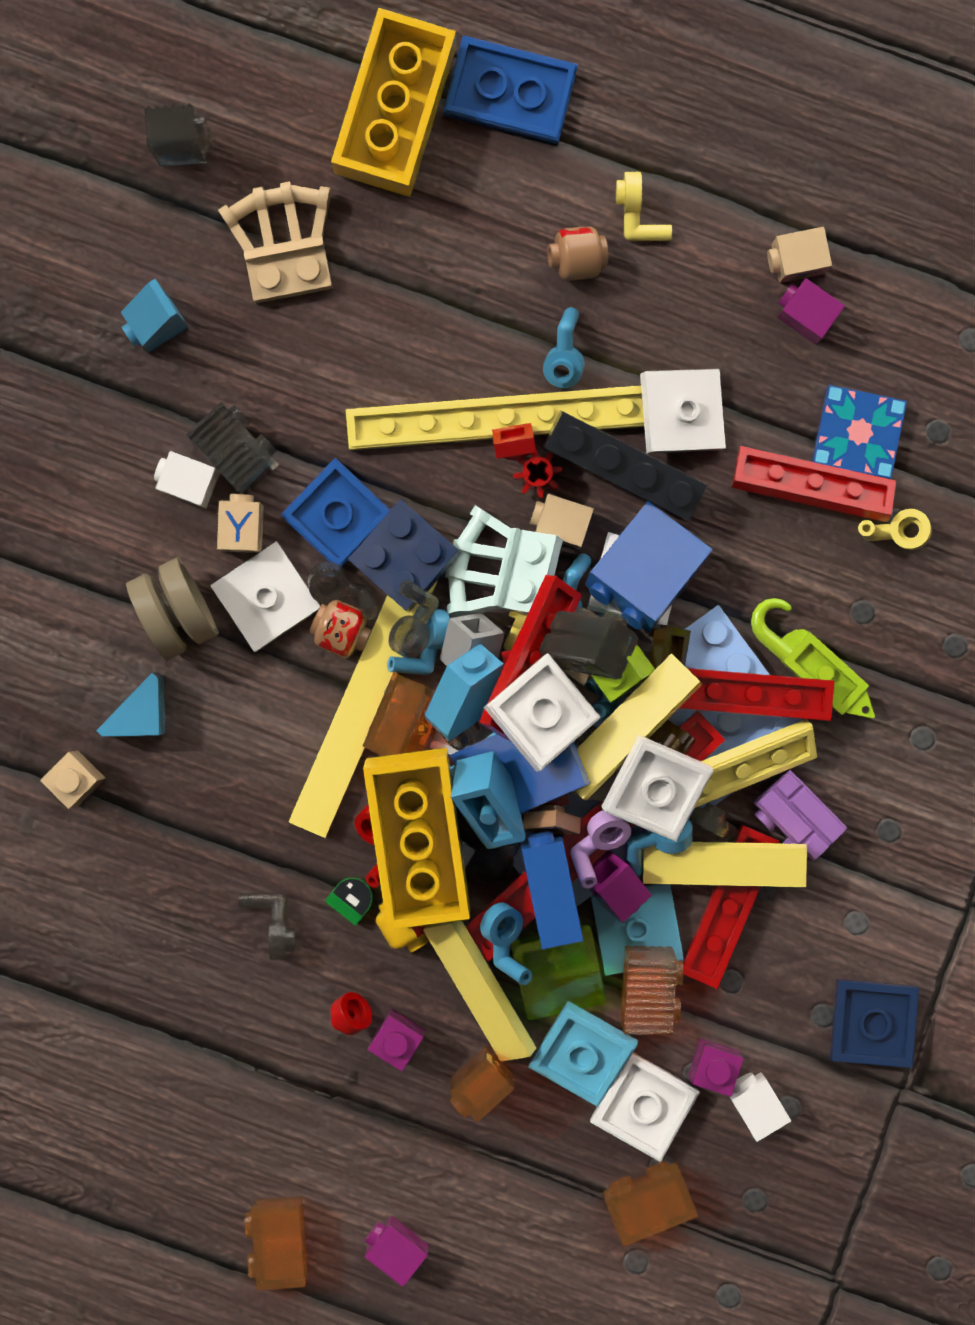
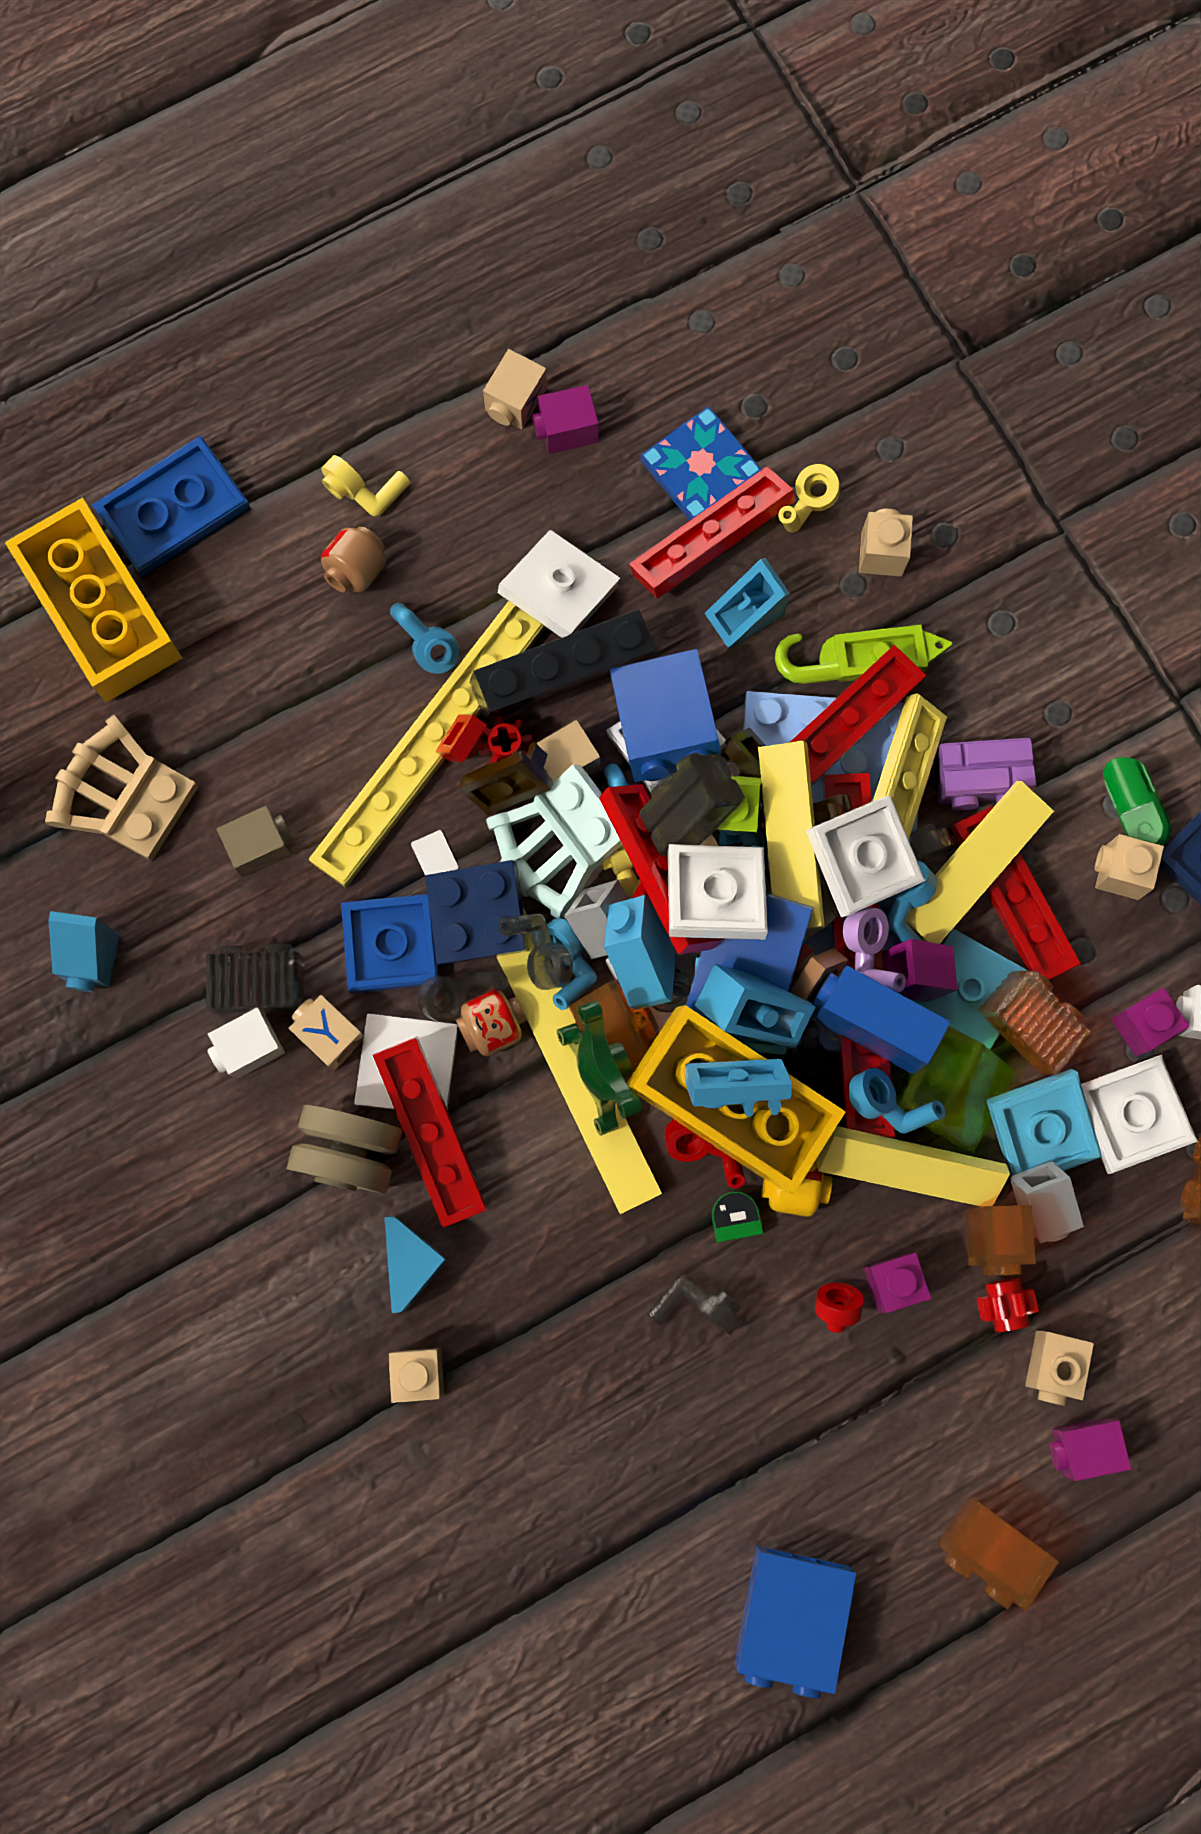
camera: 50 degrees left, 10 degrees down
(128, 1148) = (794, 1622): none -> blue brick
(233, 652) = (430, 1131): none -> red plate
(326, 363) = (255, 841): none -> dark tan brick
(365, 732) = (601, 1068): none -> dark green piece
(422, 490) = (434, 853): none -> white sticker
(422, 836) = (738, 1083): none -> dark azure plate
(432, 1188) = (1059, 1367): none -> tan brick
(443, 1124) = (1007, 1304): none -> red gear
(510, 500) = (508, 780): none -> dark brown plate
(533, 1095) = (1052, 1201): none -> light grey brick
(780, 554) = (749, 604): none -> dark azure slope
(813, 966) = (1128, 866): none -> tan brick
(866, 937) = (1136, 800): none -> green arm
(909, 611) = (885, 543): none -> tan brick

